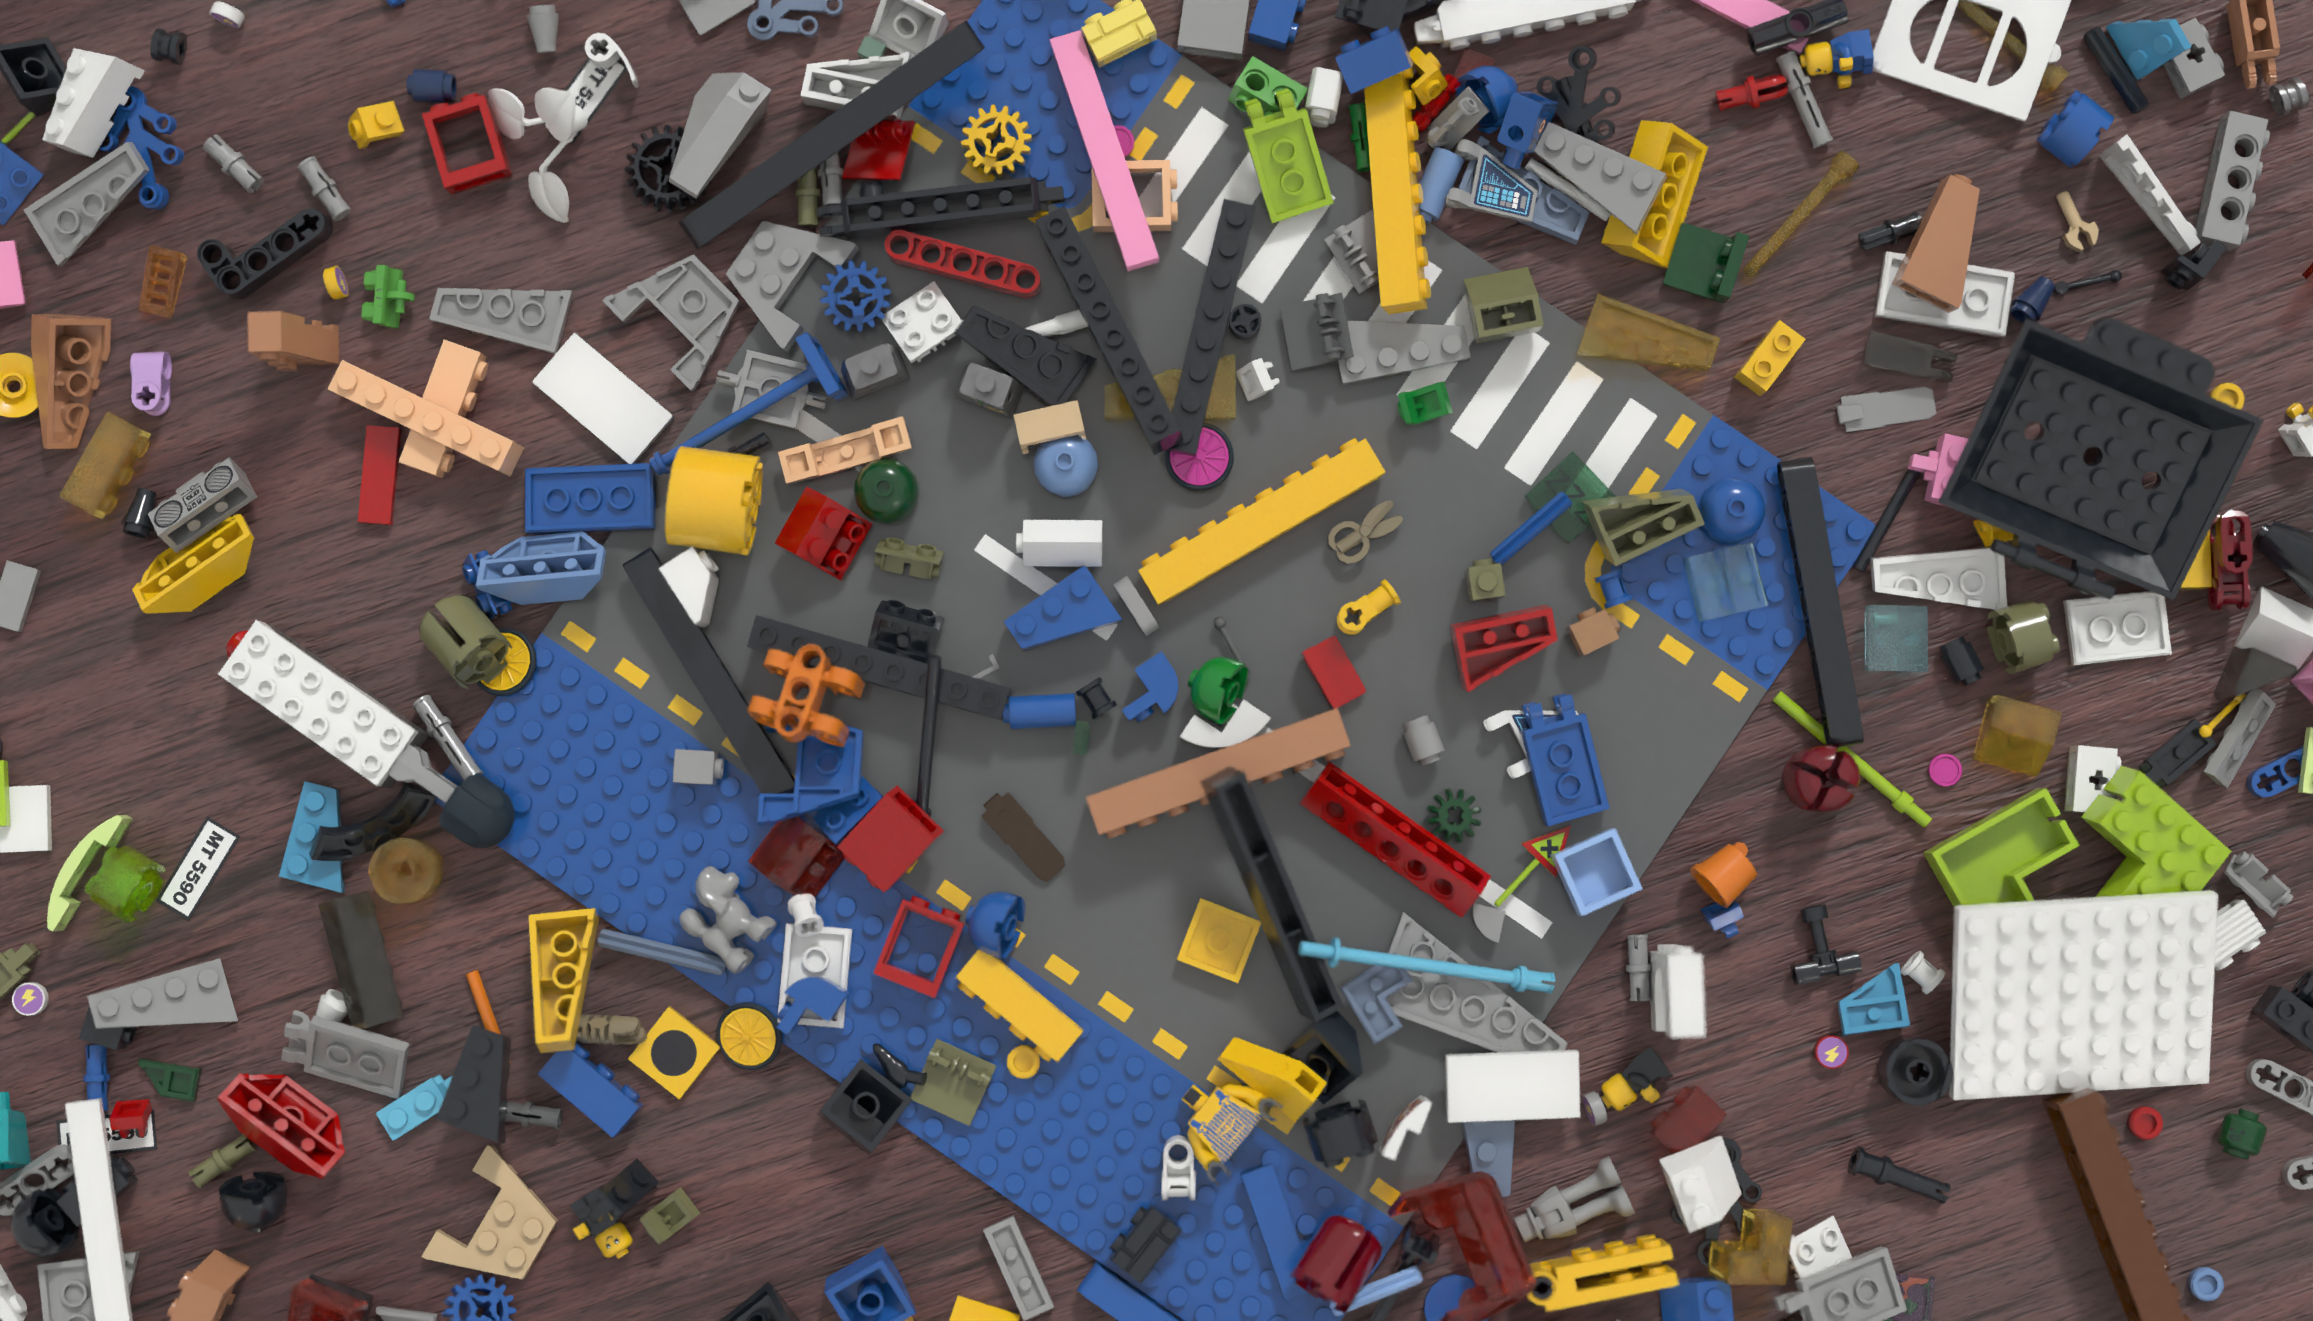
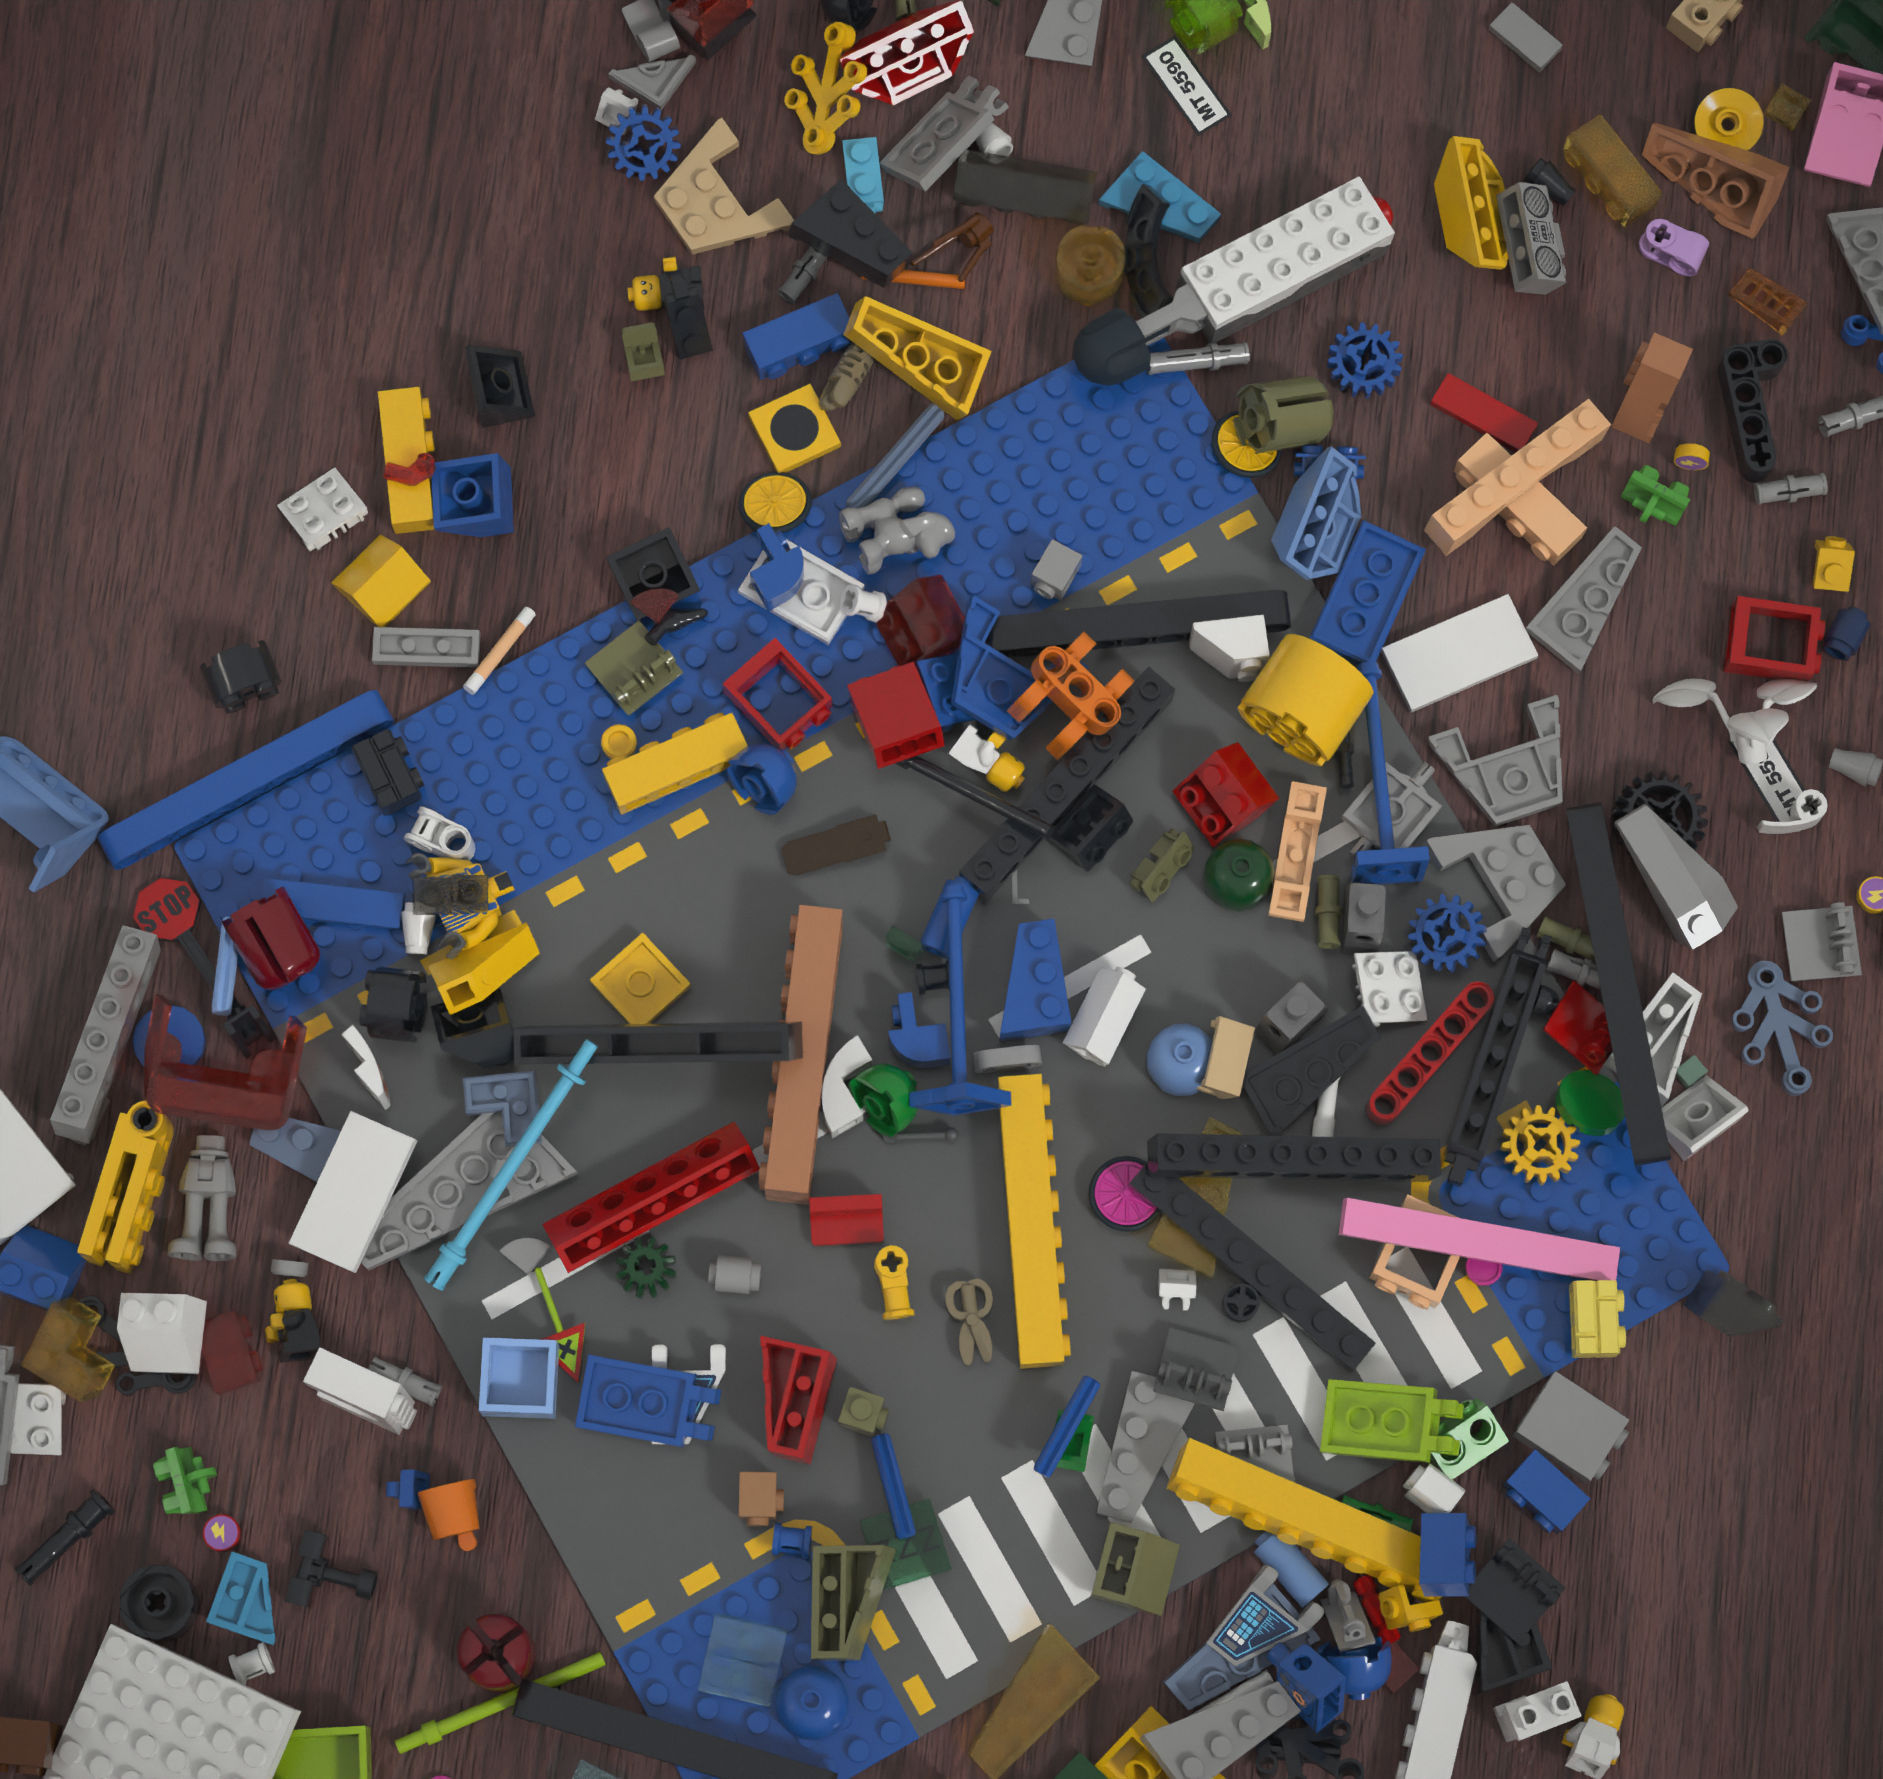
camera: 110 degrees right, 10 degrees down
(356, 1175) = (820, 130): none -> yellow plant
(381, 609) = (1380, 365): none -> blue gear
(424, 987) = (971, 233): none -> reddish brown plant
(882, 402) = (1328, 912): none -> olive pin
(888, 749) = (982, 755): none -> piece
(891, 1090) = (655, 603): none -> clear red tile
(941, 115) = (1590, 1102): none -> green tile
(991, 1204) = (499, 650): none -> light nougat bar
(1188, 627) = (959, 1096): none -> blue tile
(1228, 1133) = (450, 895): none -> clear smoke slope
(1263, 1148) = (416, 930): none -> white cone
(1419, 410) = (1066, 1426): none -> blue axle
(1805, 1100) = (189, 1481): none -> bright green hips

